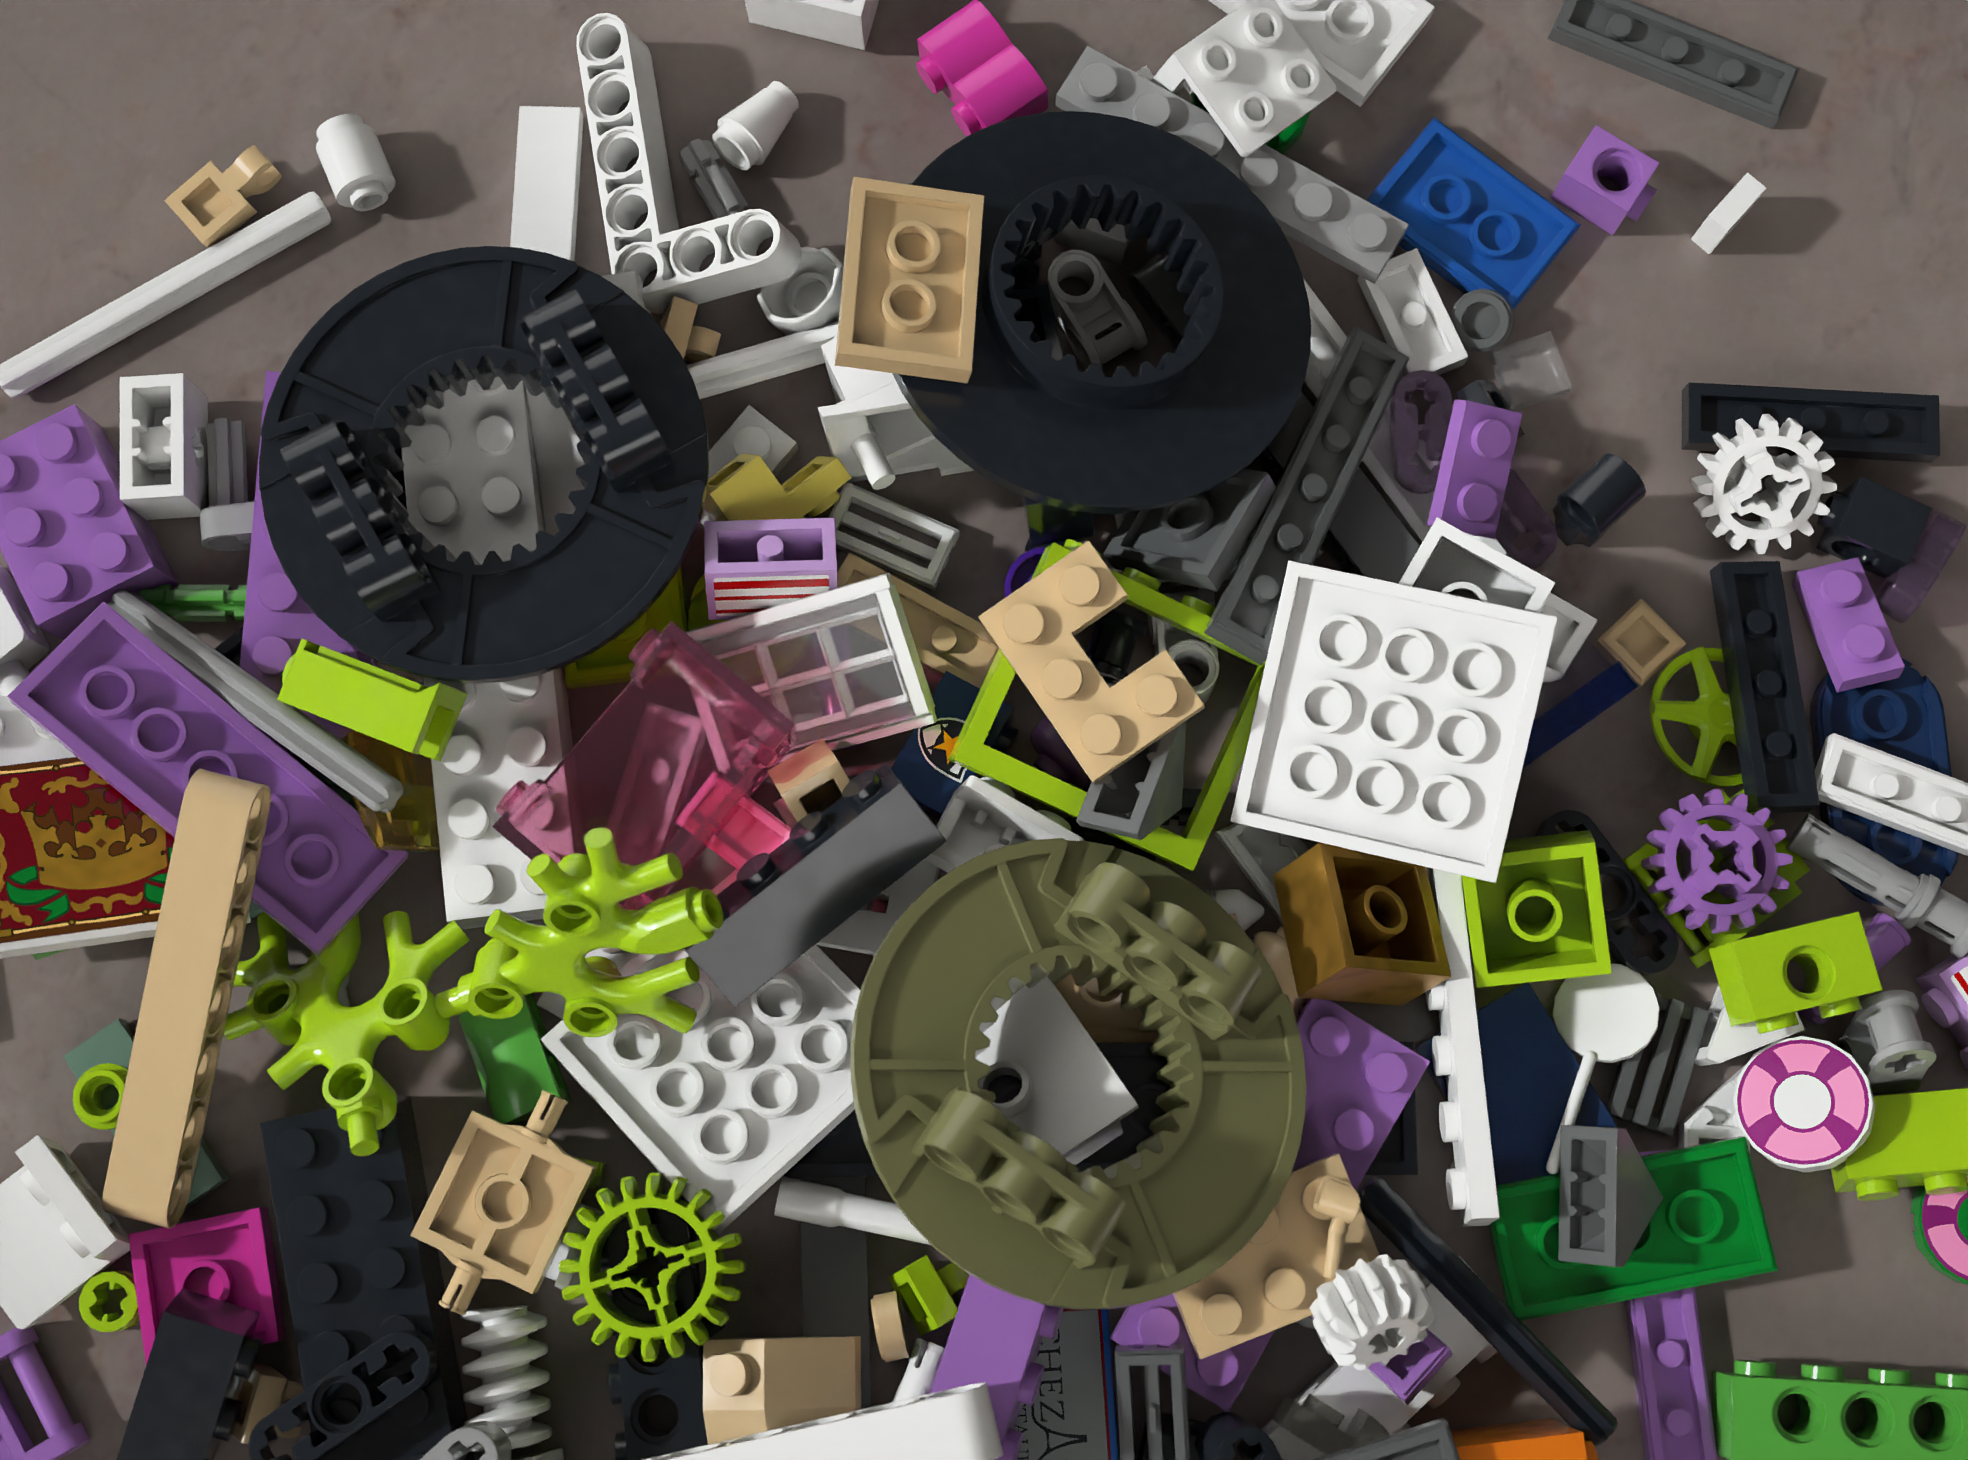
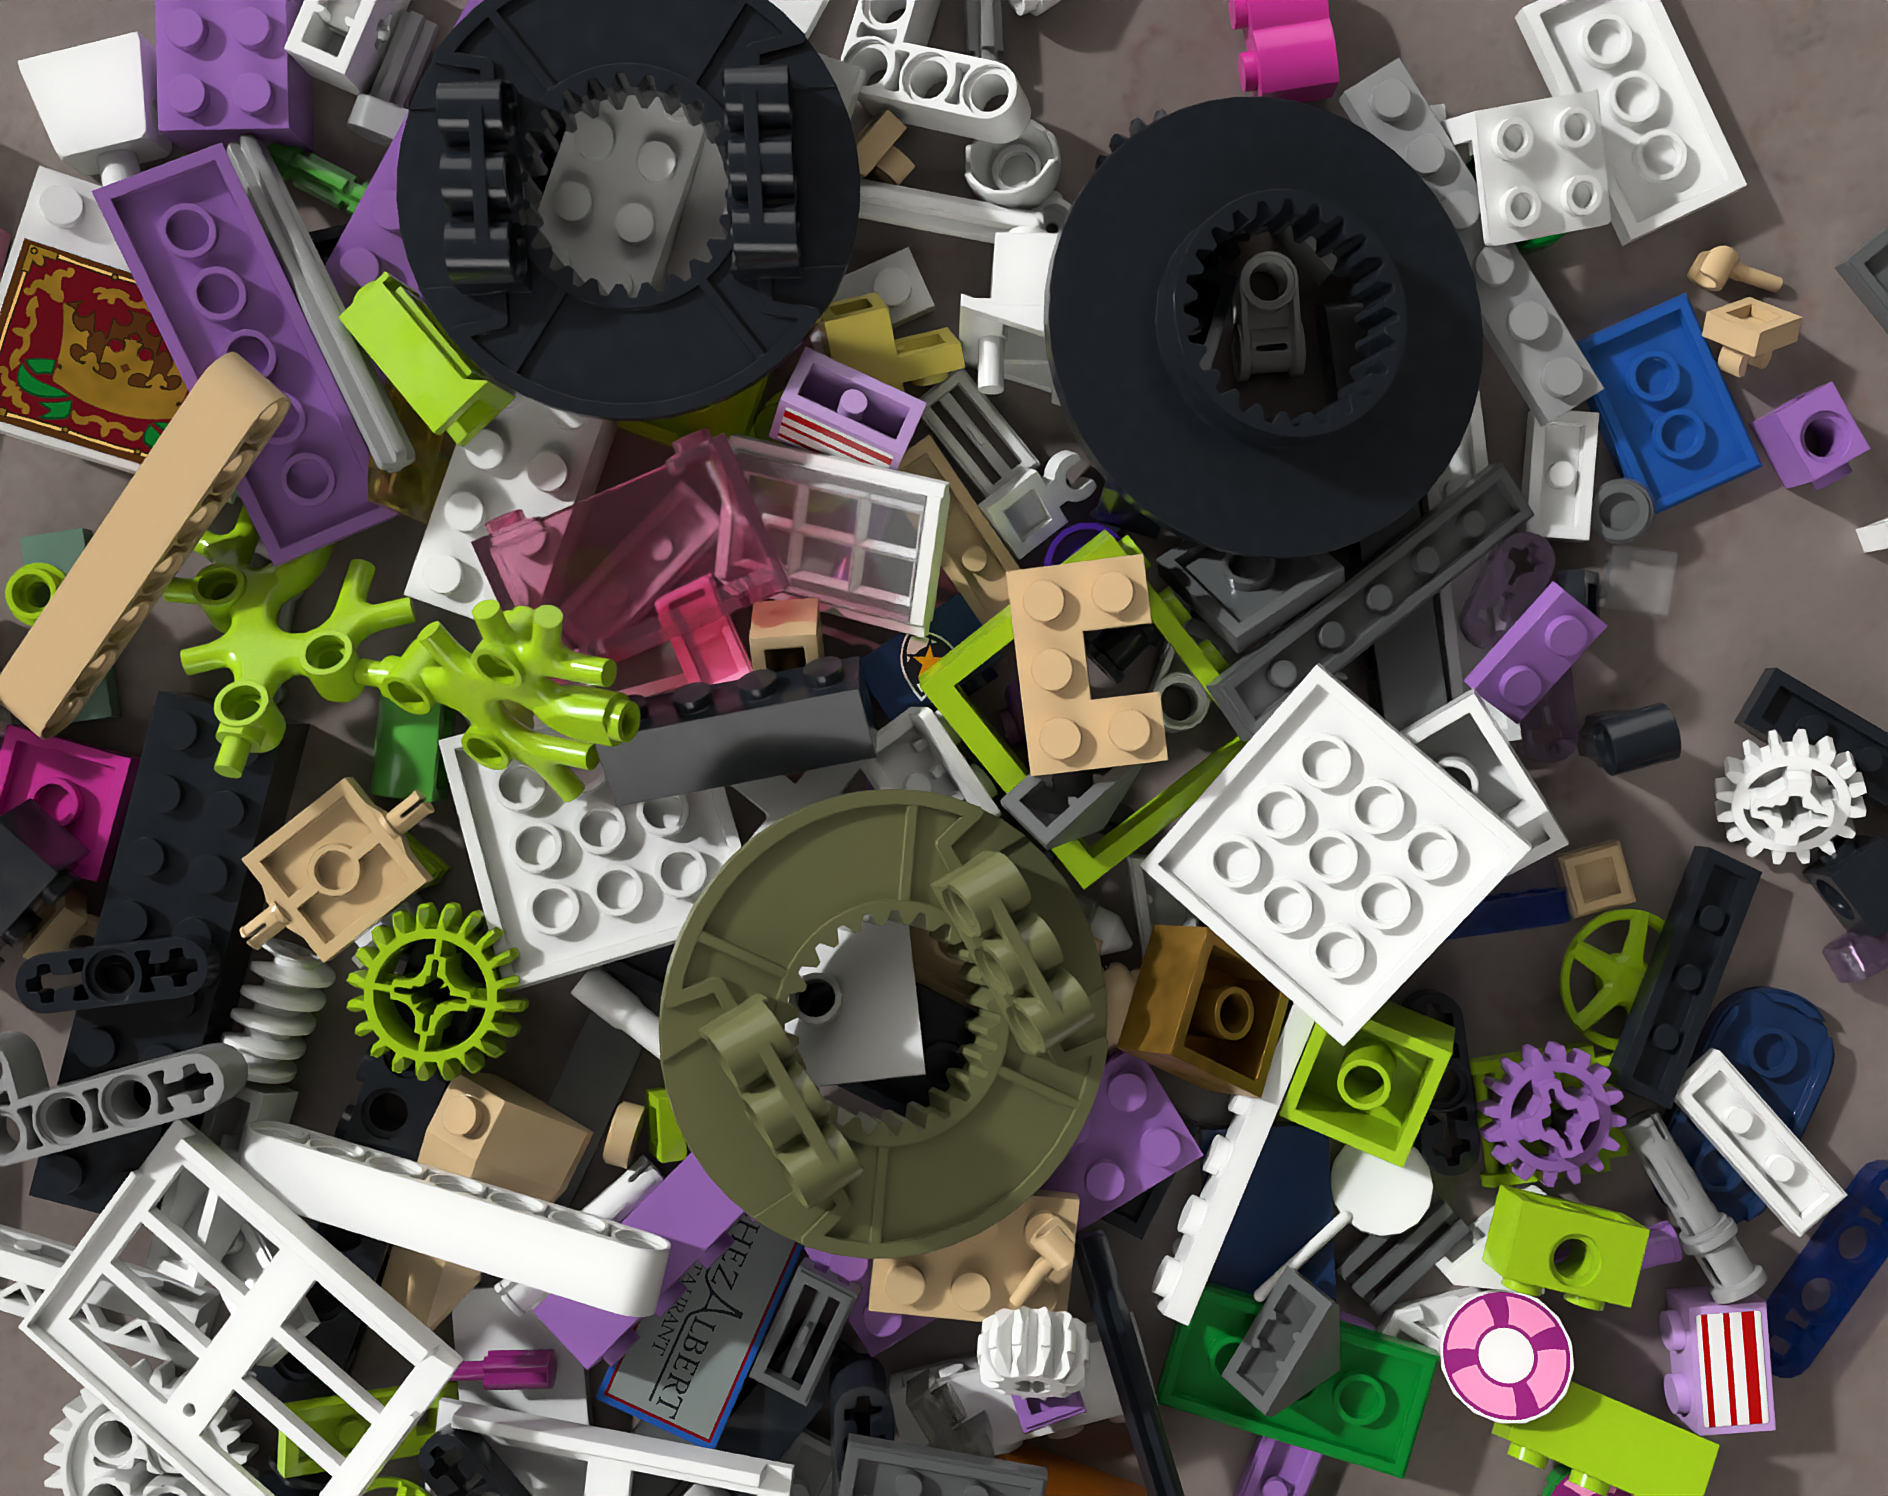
camera: 30 degrees right, 10 degrees up
(910, 280) = (1105, 218): tan plate -> none
(968, 569) = (1029, 506): none -> white plate
(1450, 79) = (1715, 266): none -> tan hand
(1506, 123) = (1749, 333): none -> tan tile
(1848, 625) = (1789, 959): medium lavender plate -> none
(1889, 1042) = (1609, 1342): light grey piece -> none

